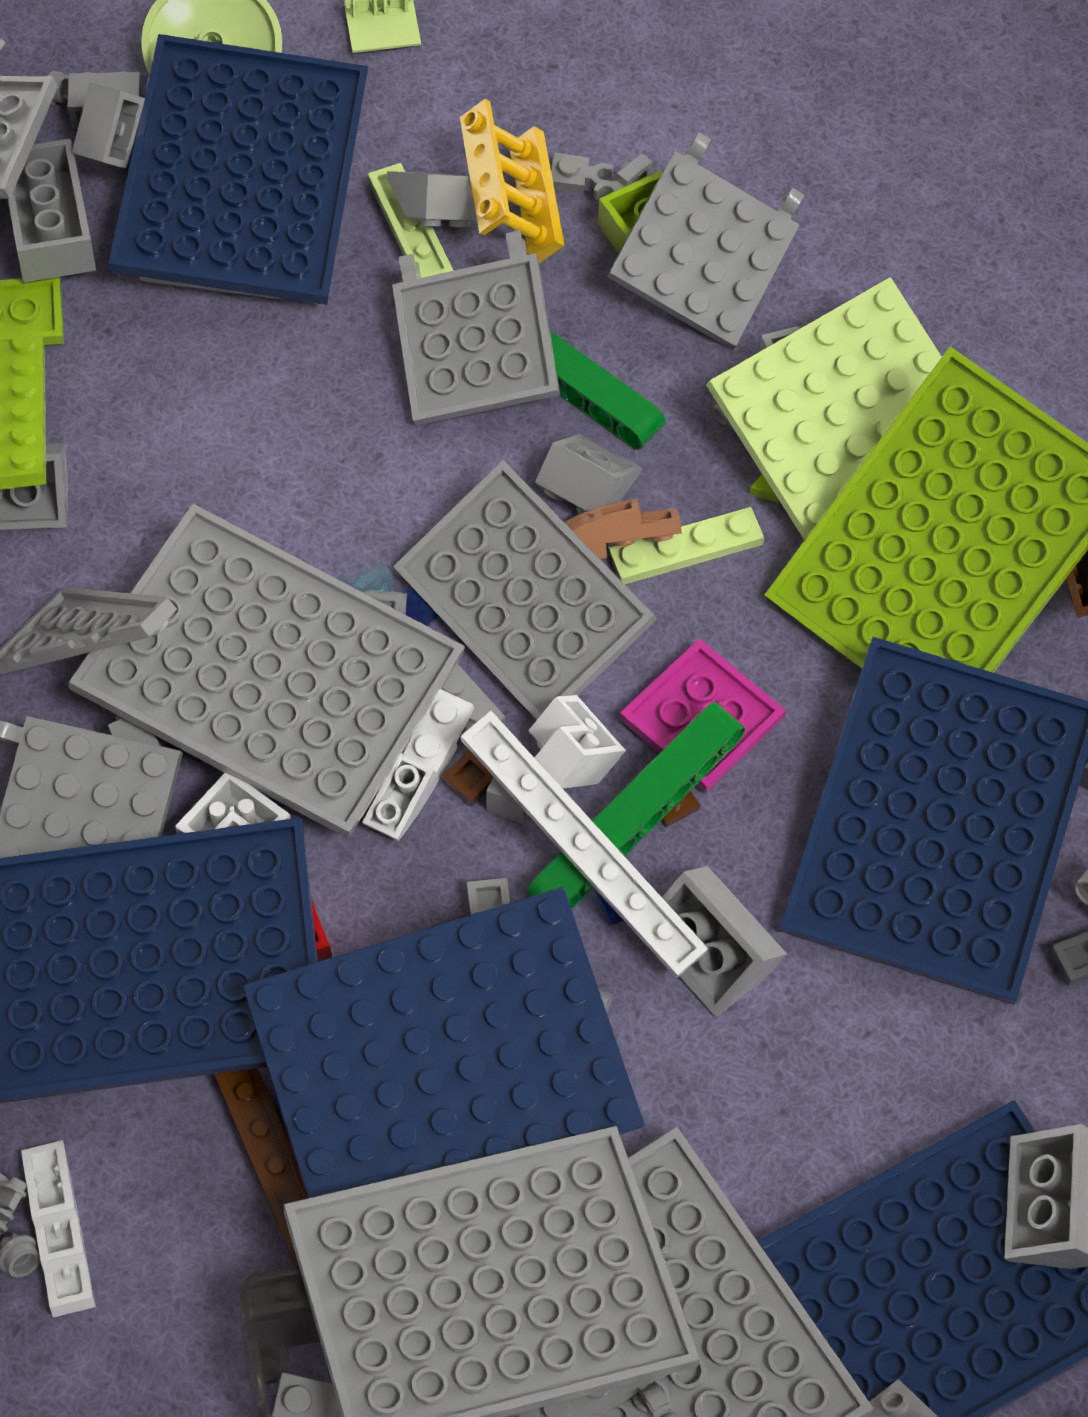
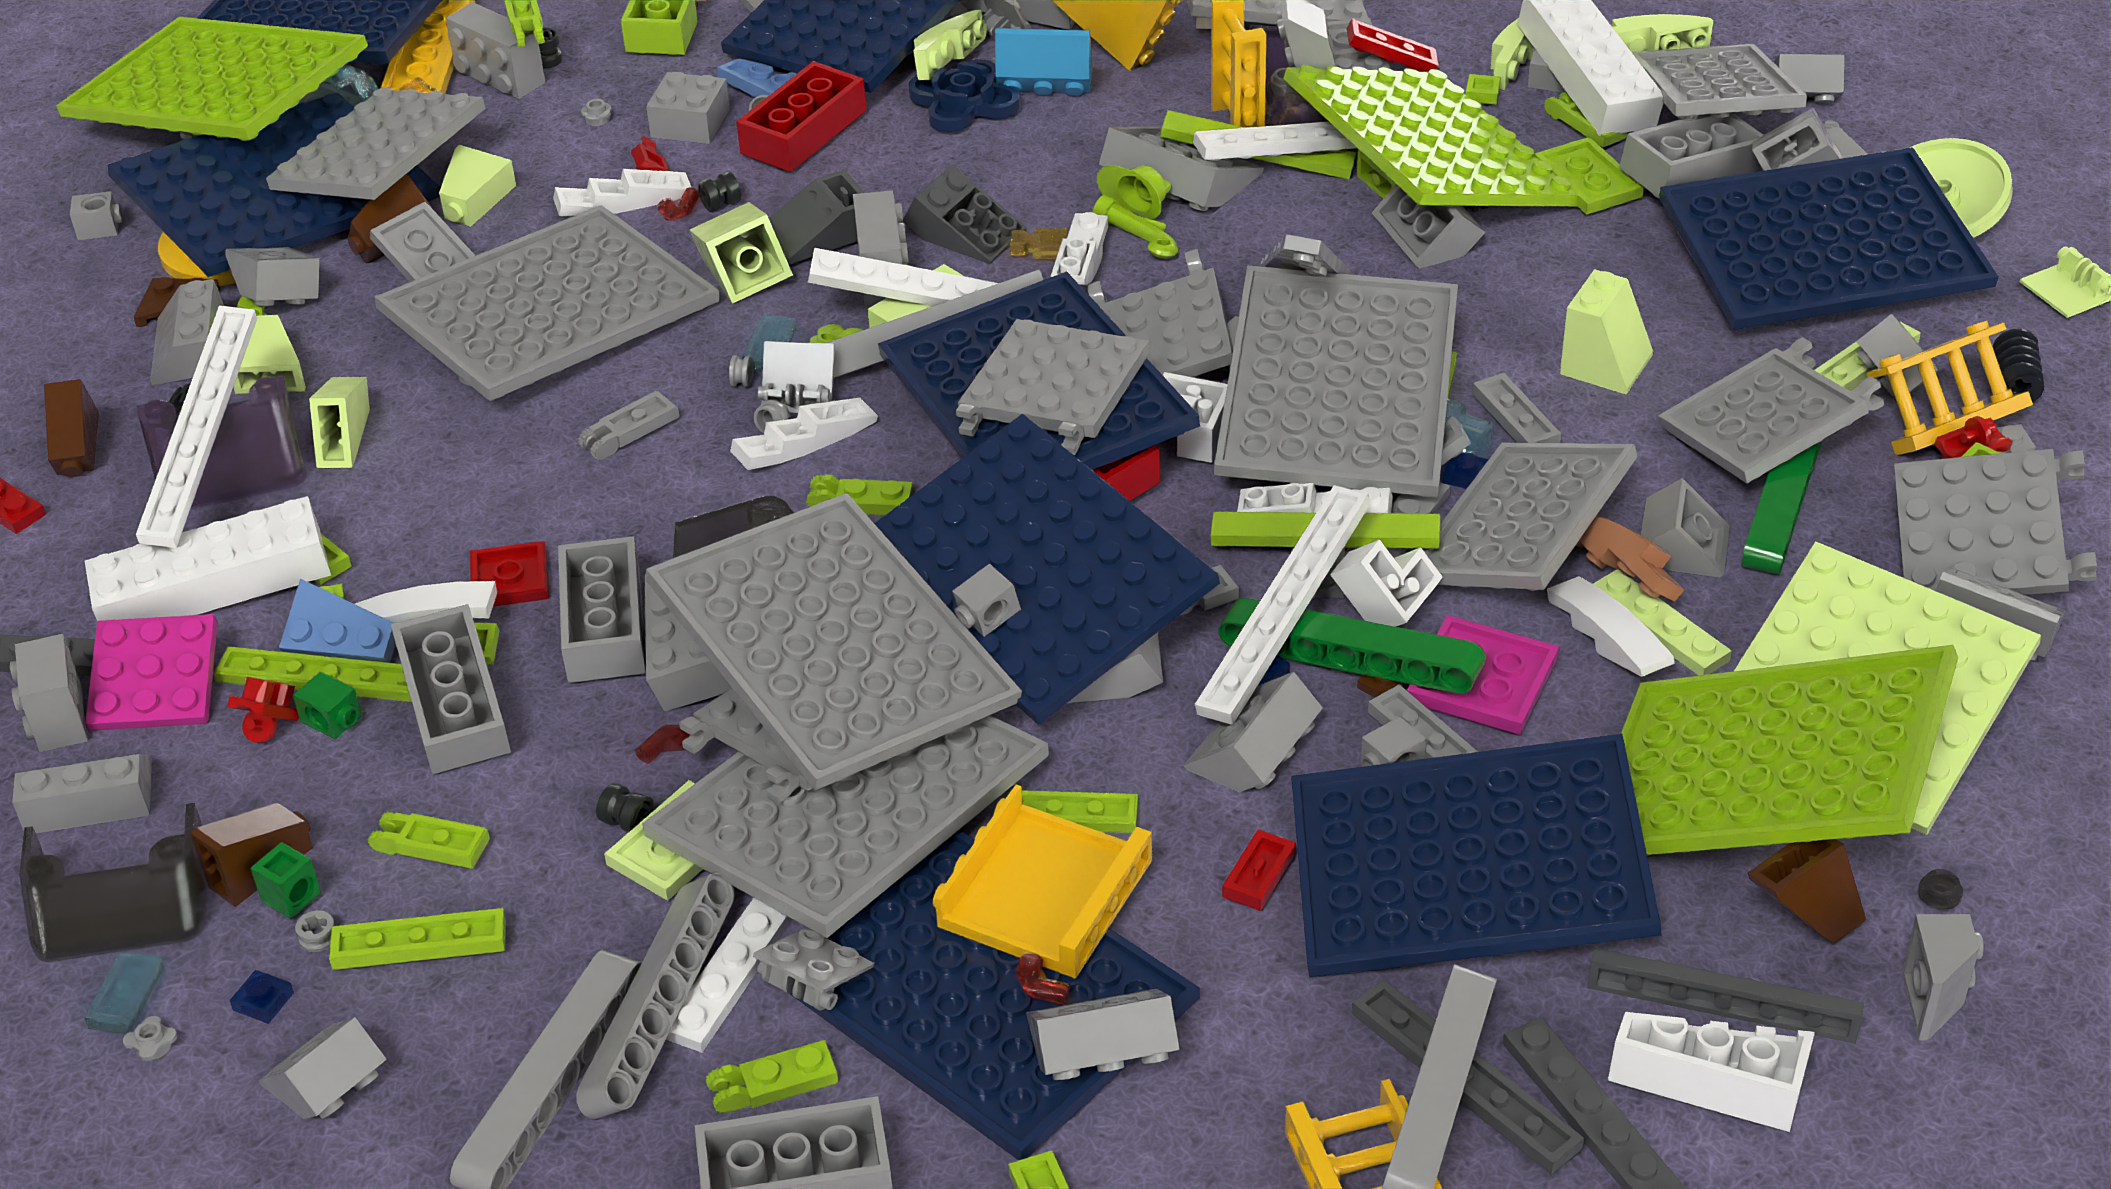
camera: 75 degrees right, 20 degrees down
(171, 938) = (1054, 377): none -> light grey plate
(191, 1195) = (871, 496): none -> lime hinge
(292, 415) = (1605, 334): none -> yellowish green slope
(352, 536) = (1514, 410): none -> light grey plate
(458, 776) = (1286, 529): none -> lime tile
(461, 103) = (2020, 362): none -> black piece
(504, 1117) = (985, 600): none -> light grey brick
(575, 202) = (1977, 430): none -> red hips
(699, 584) = (1611, 625): none -> white slope
(744, 1132) = (1093, 810): none -> lime tile
(759, 795) = (1439, 737): none -> light grey plate
(780, 830) = (1392, 743): none -> light grey brick
(805, 287) = (2005, 604): none -> light grey slope
(859, 1190) = (1041, 885): none -> yellow panel
(881, 998) = (1259, 869): none -> red plate
(976, 1239) = (1036, 983): none -> clear red arm

